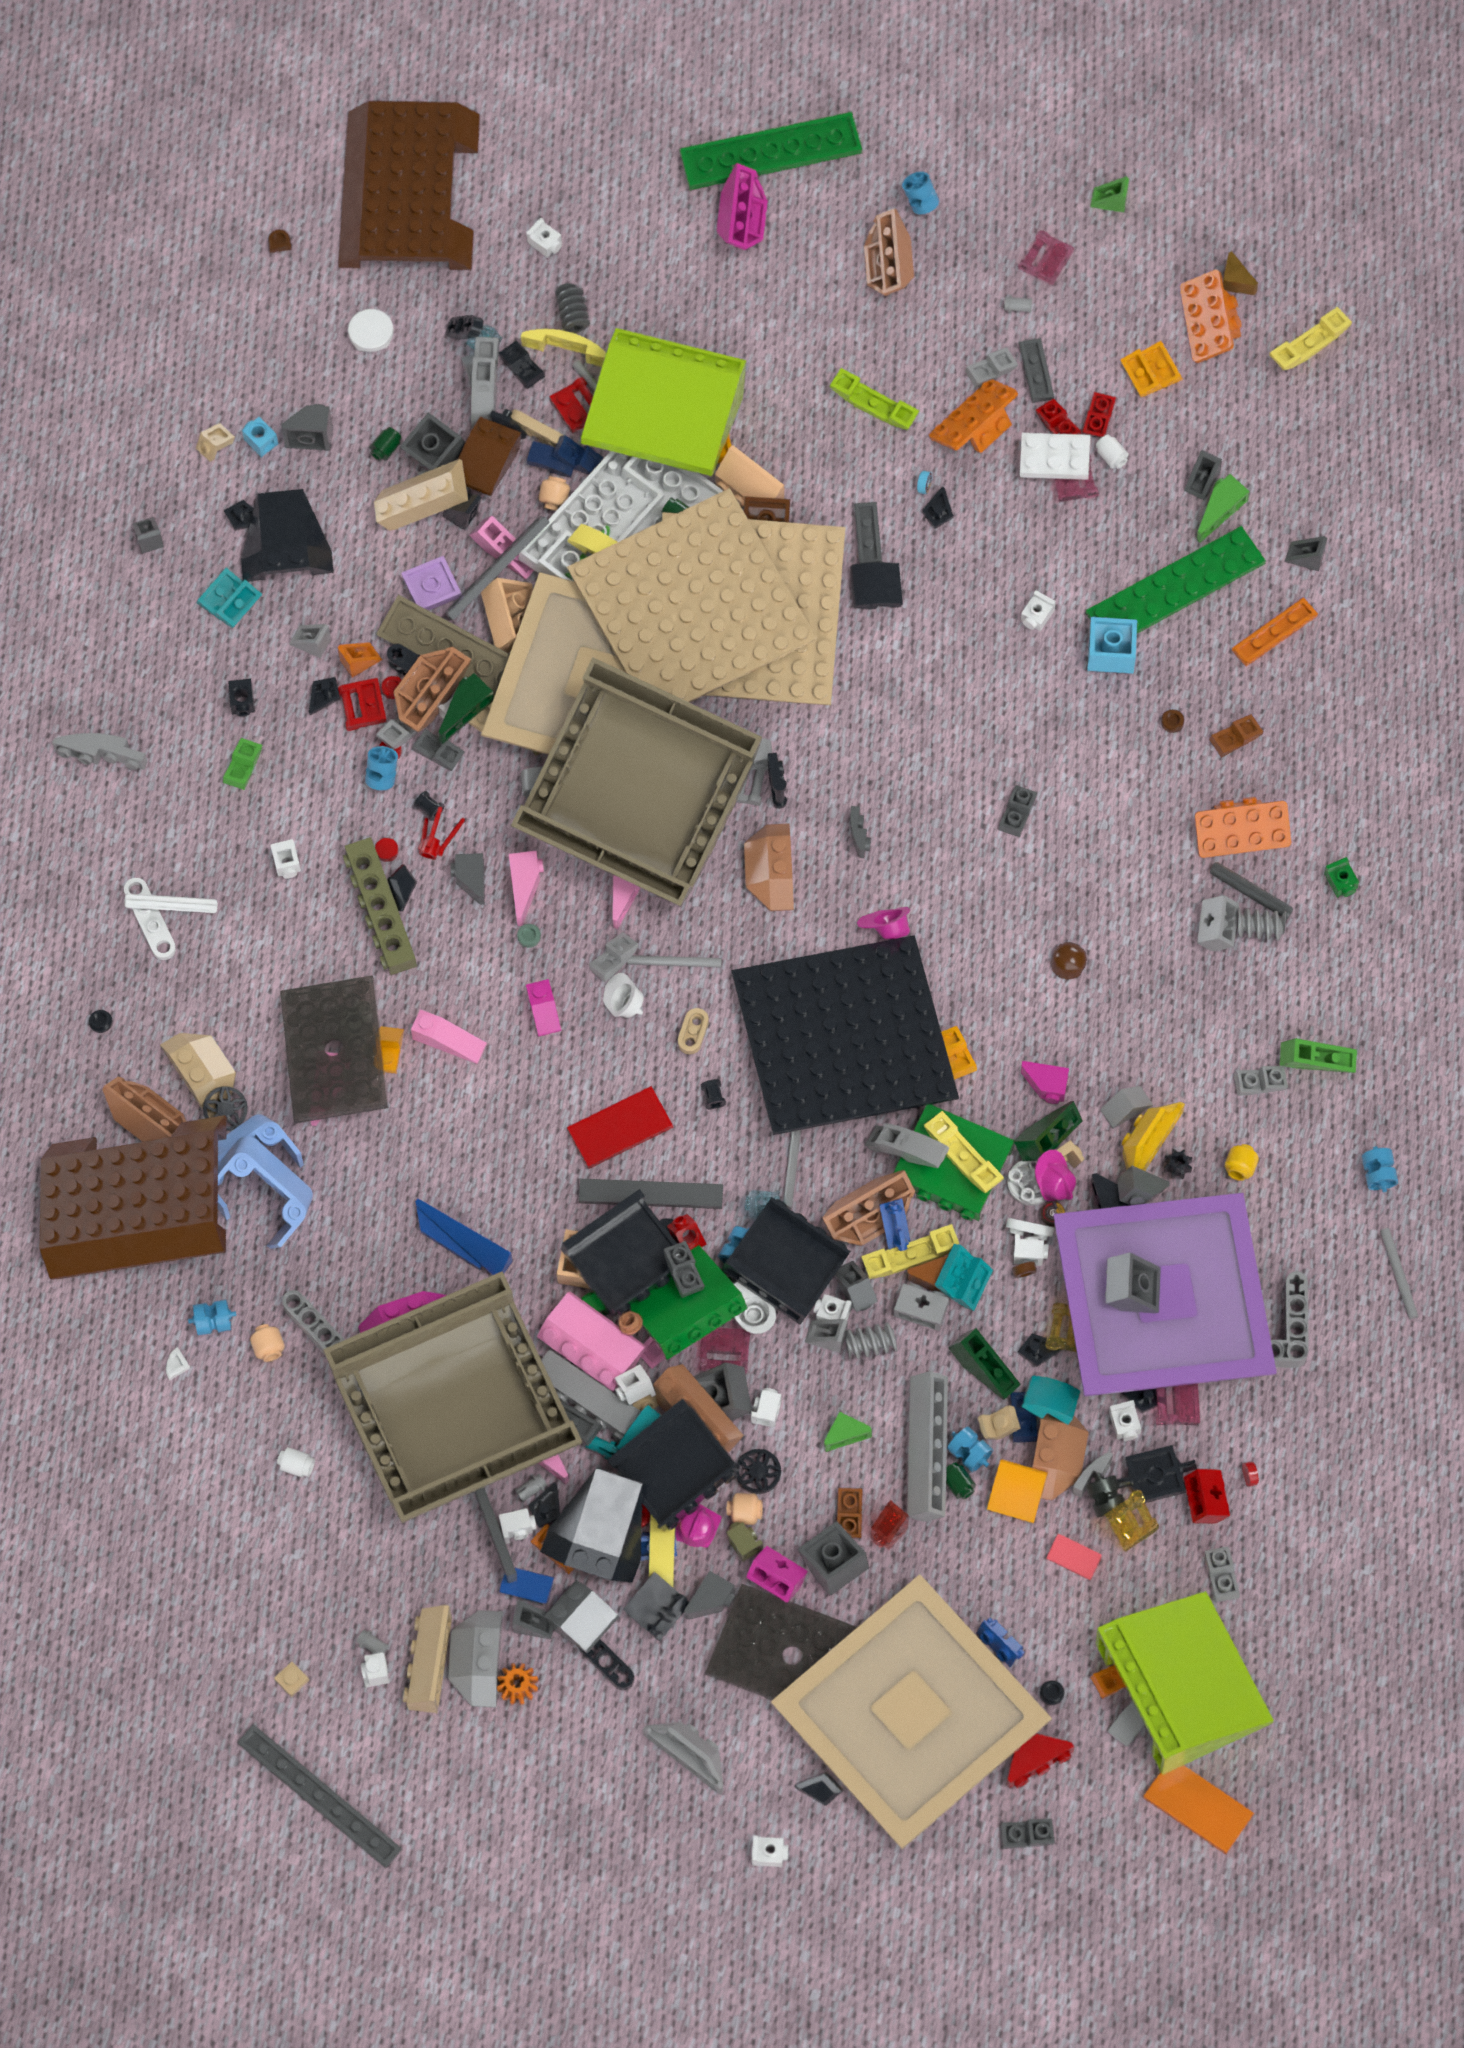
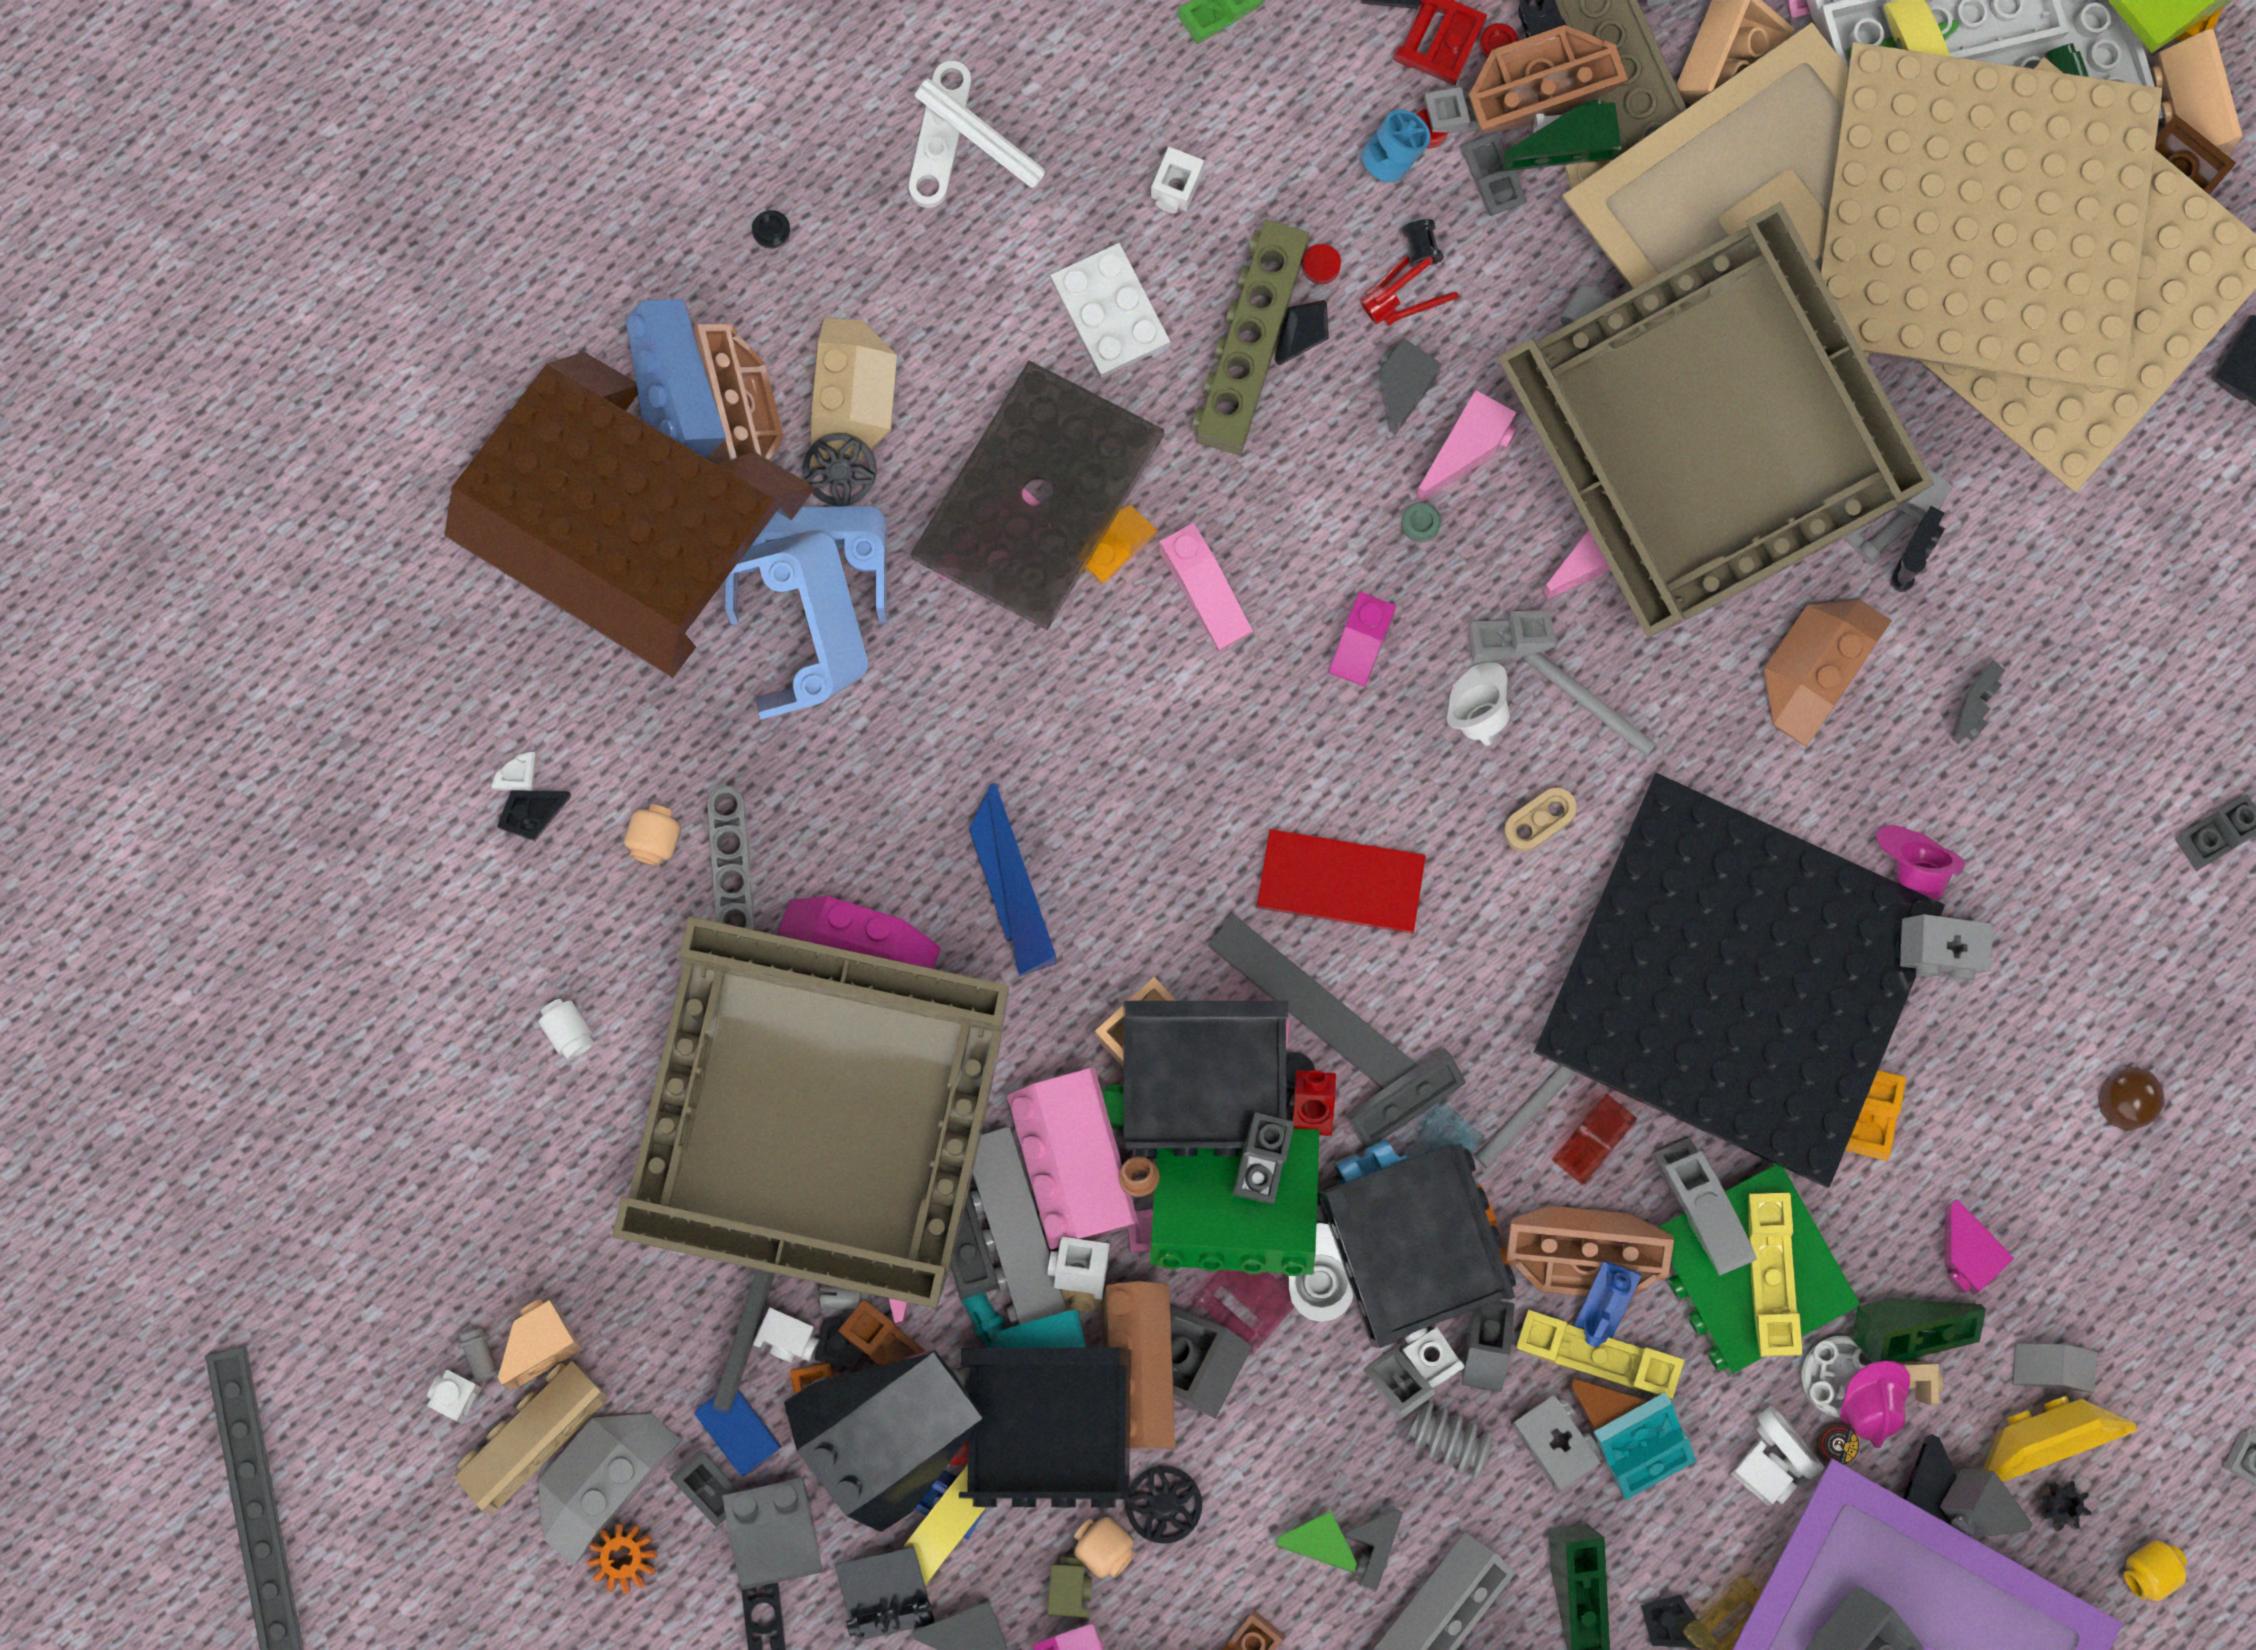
camera: 35 degrees right, 10 degrees up
(107, 1118) = (672, 376): none -> medium blue wedge
(197, 1376) = (531, 812): none -> black piece
(212, 1317) = (604, 745): dark azure wheel -> none
(291, 1679) = (340, 1322): tan plate -> none
(299, 943) = (1110, 310): none -> white plate
(400, 1611) = (536, 1344): none -> light nougat slope
(557, 1491) = (877, 1336): none -> dark orange slope
(698, 1528) = (1025, 1529): dark pink piece -> none
(713, 1094) = (1500, 929): black bush -> none
(728, 1203) = (1406, 1098): none -> dark grey tile
(766, 1408) = (1241, 1426): white brick -> none
(832, 1156) = (1594, 1139): none -> clear red slope
(872, 1410) = (1379, 1535): none -> dark grey slope
(929, 951) = (1946, 945): none -> light grey brick
(1024, 1269) = (1737, 1497): reddish brown tile -> none

